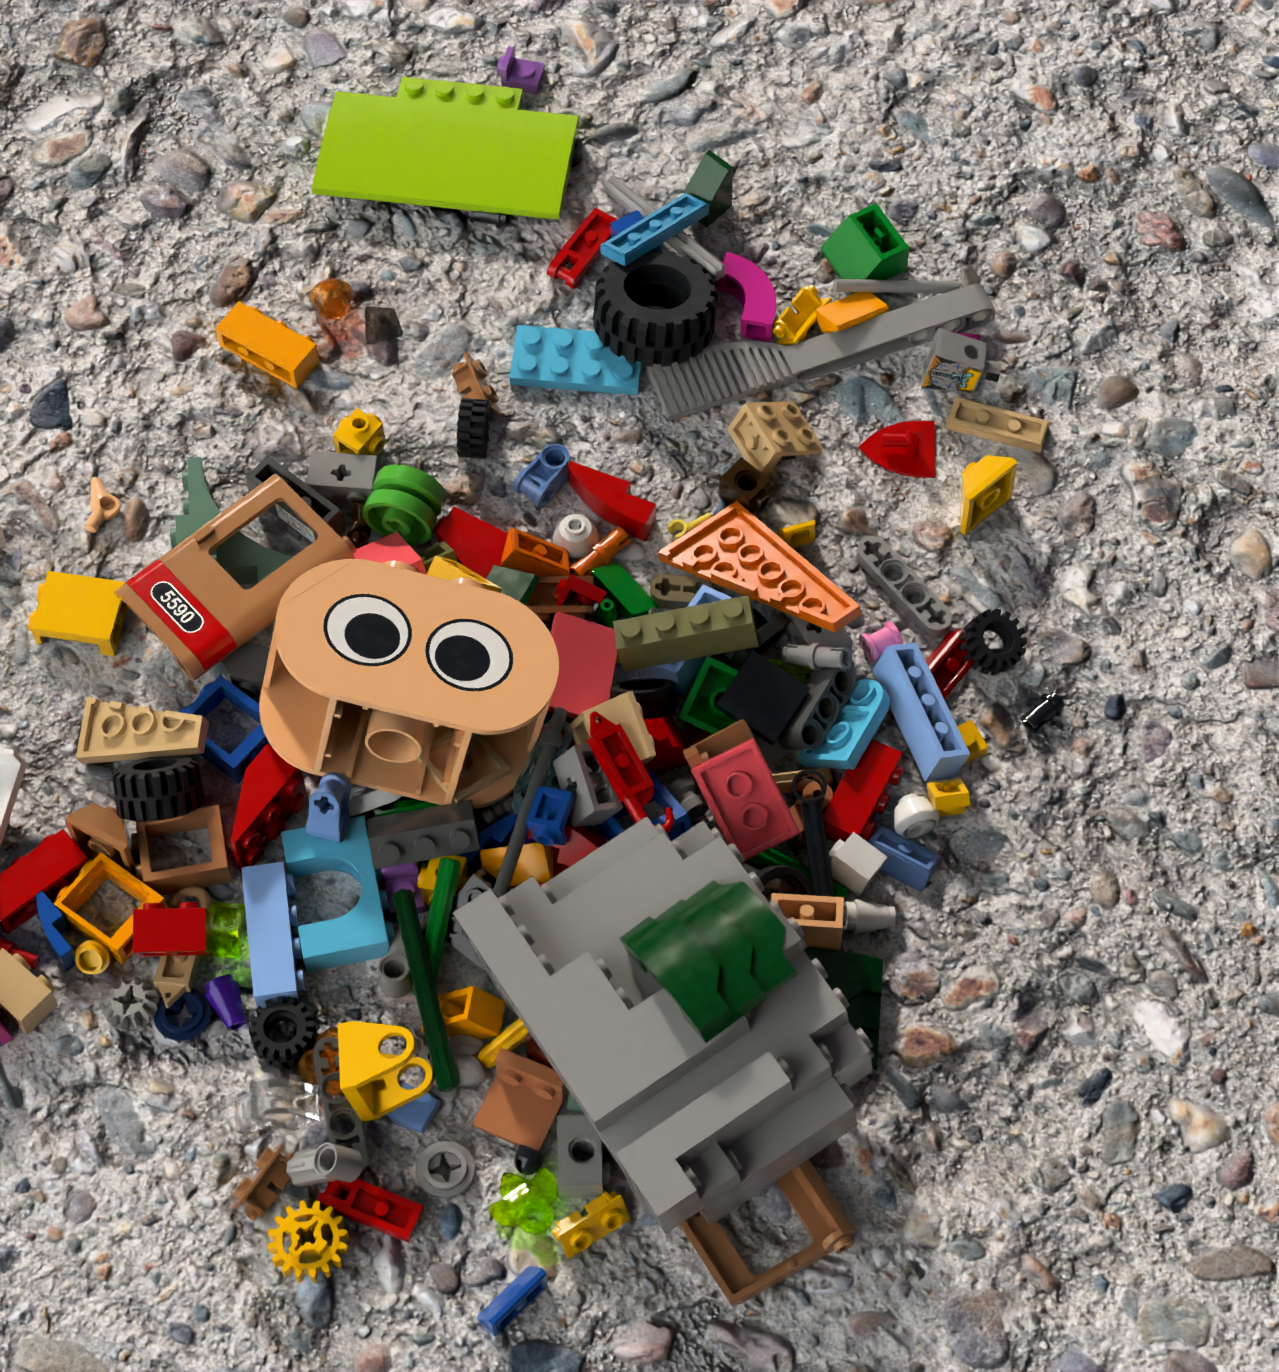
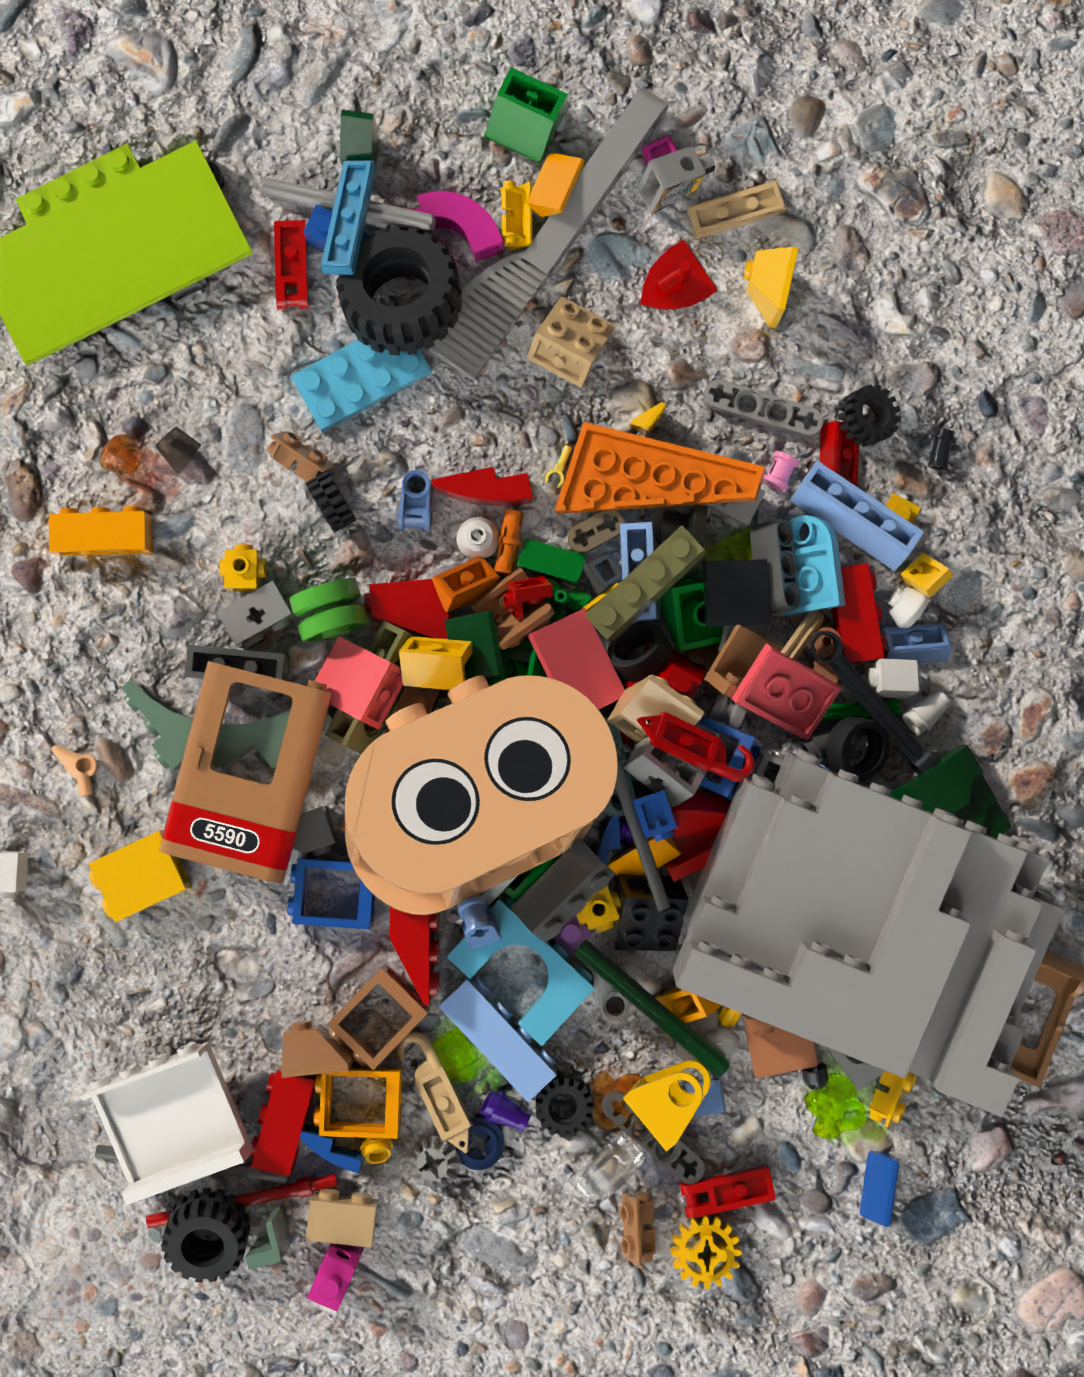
camera: 35 degrees left, 25 degrees up
(131, 733) = (267, 951): tan wing -> none
(158, 788) = (327, 991): black tyre -> none
(171, 930) = (430, 1101): red brick -> none
(324, 1164) = (680, 1193): light grey piece -> none
(359, 530) = (304, 652): dark brown arm -> none
(431, 1161) = (760, 1140): light grey gear -> none
(440, 911) = (619, 940): green axle -> none
(520, 72) = (111, 126): medium lavender bracket -> none
(714, 954) = (907, 889): dark green slope -> none
(742, 476) = (573, 395): dark brown brick -> none
(817, 656) = (752, 527): light grey pin -> none
(818, 917) = (905, 763): light nougat brick -> none
(894, 286) = (573, 133): light grey bar -> none

